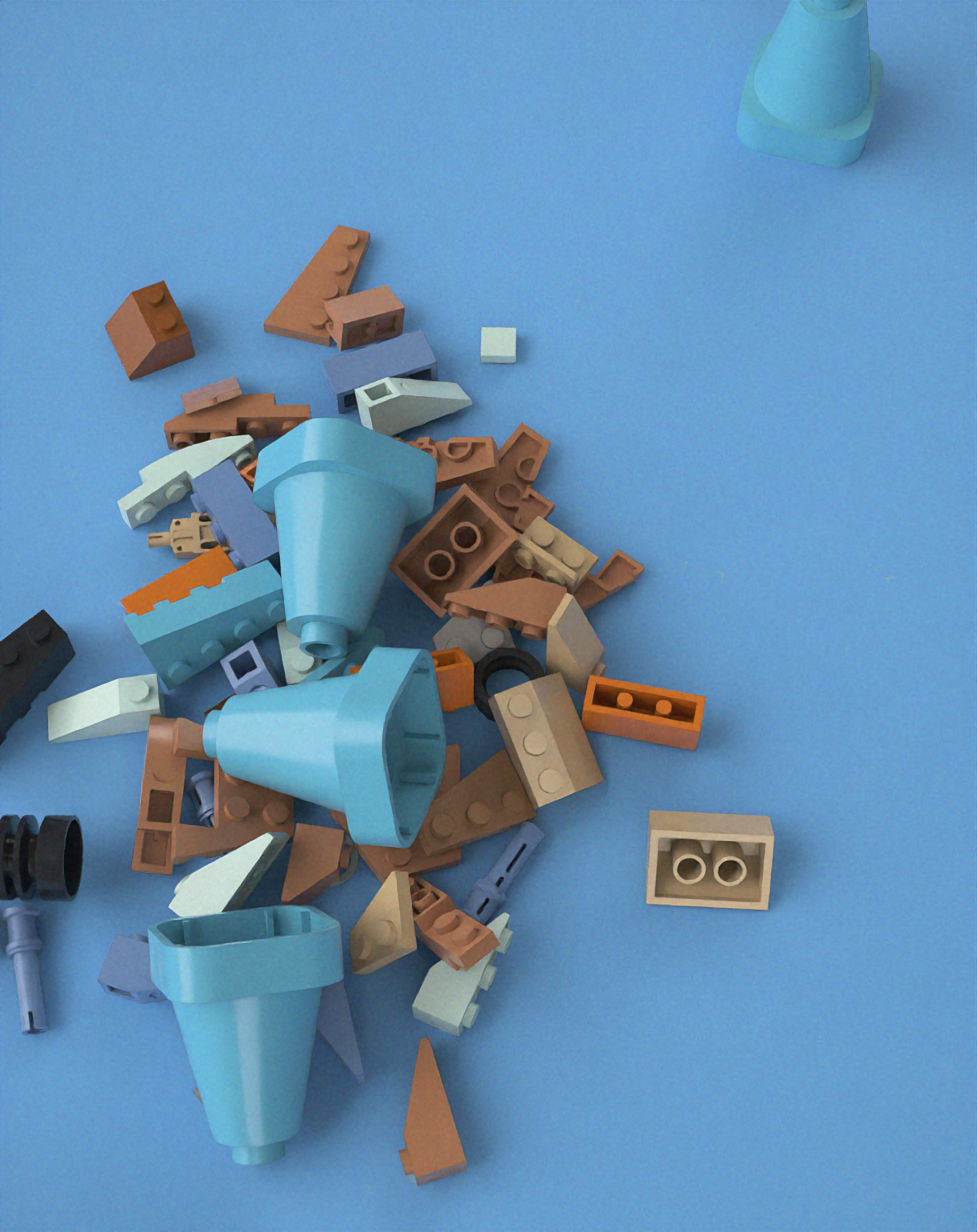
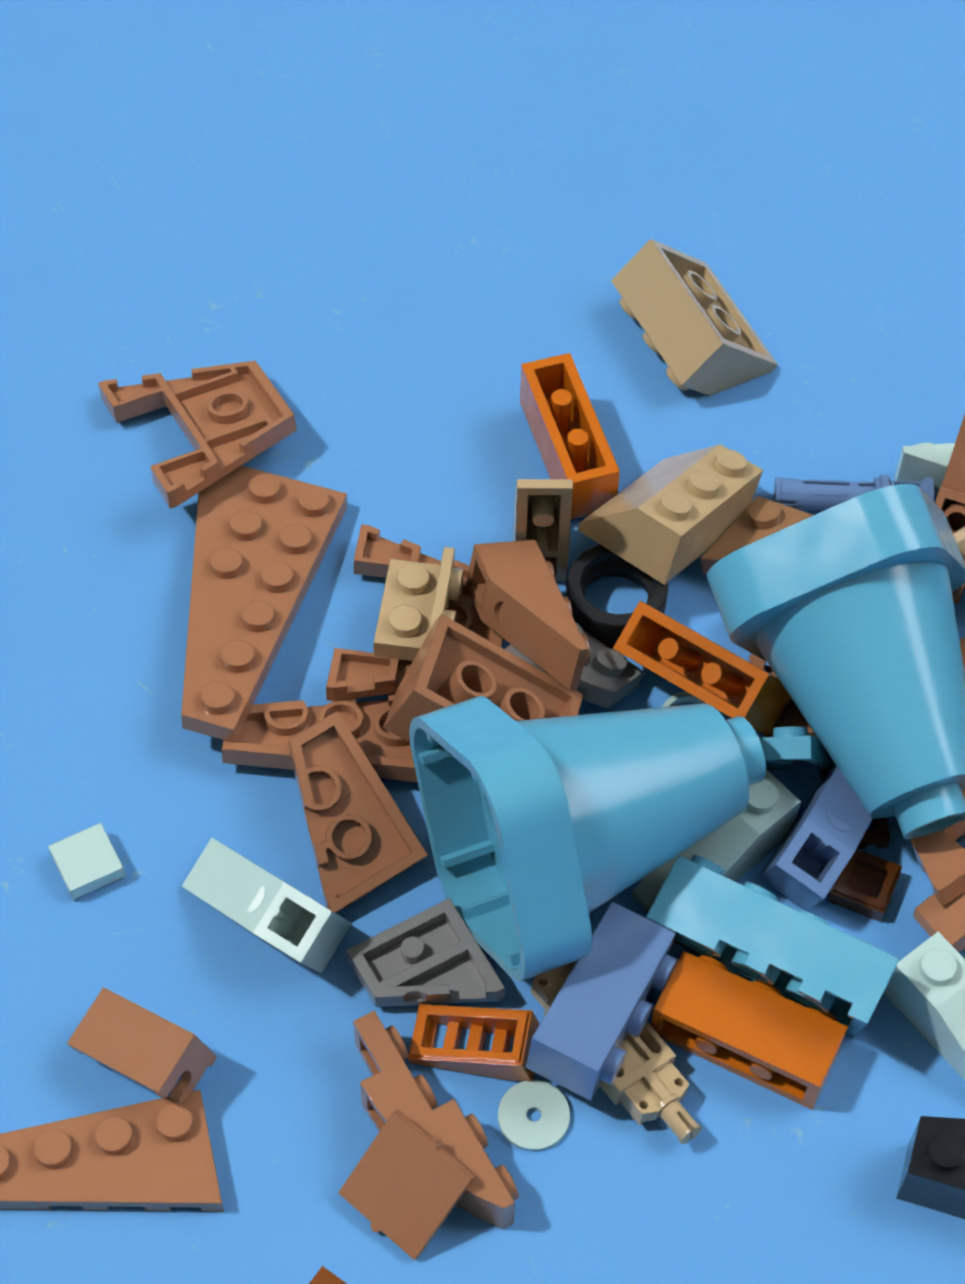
camera: 120 degrees left, 5 degrees down
(171, 476) = (536, 1137): light aqua slope -> none
(402, 357) = (225, 981): medium blue brick -> none
(652, 501) = (250, 572): none -> nougat wing
(770, 528) = (223, 411): none -> nougat wing

